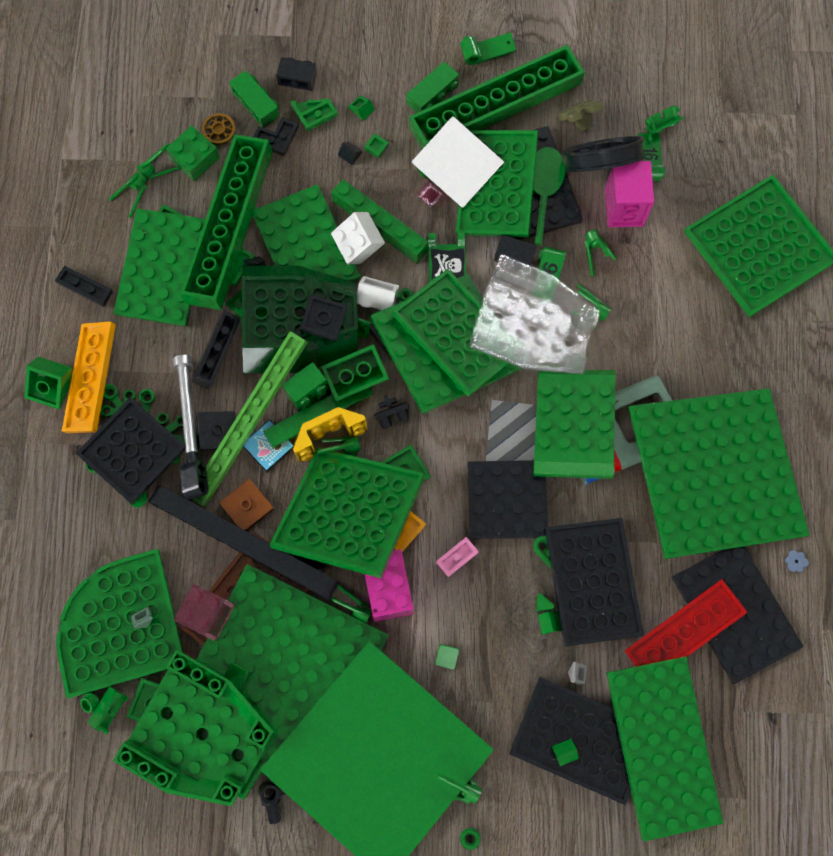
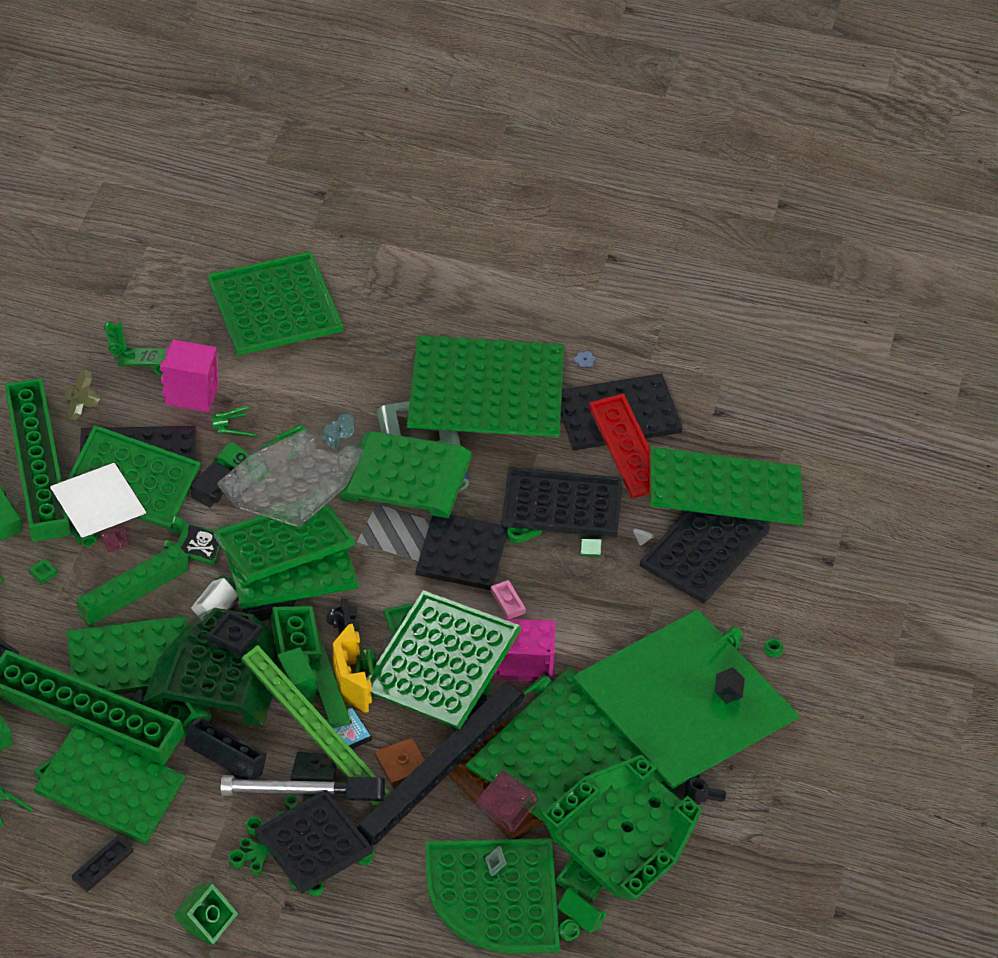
camera: 80 degrees left, 25 degrees down
(89, 377) = (201, 864): light orange plate -> none
(349, 152) = (40, 598): black slope -> none
(357, 238) = (149, 600): white brick -> none
(391, 804) = (729, 685): none -> black brick
(447, 656) = (601, 629): slope -> none
(543, 604) = (570, 544): green slope -> none
(547, 181) = (150, 436): green piece -> none
(565, 752) = (713, 555): green slope -> none
(604, 154) = (143, 378): black wheel -> none
(624, 350) = (342, 428): none -> clear light blue leg

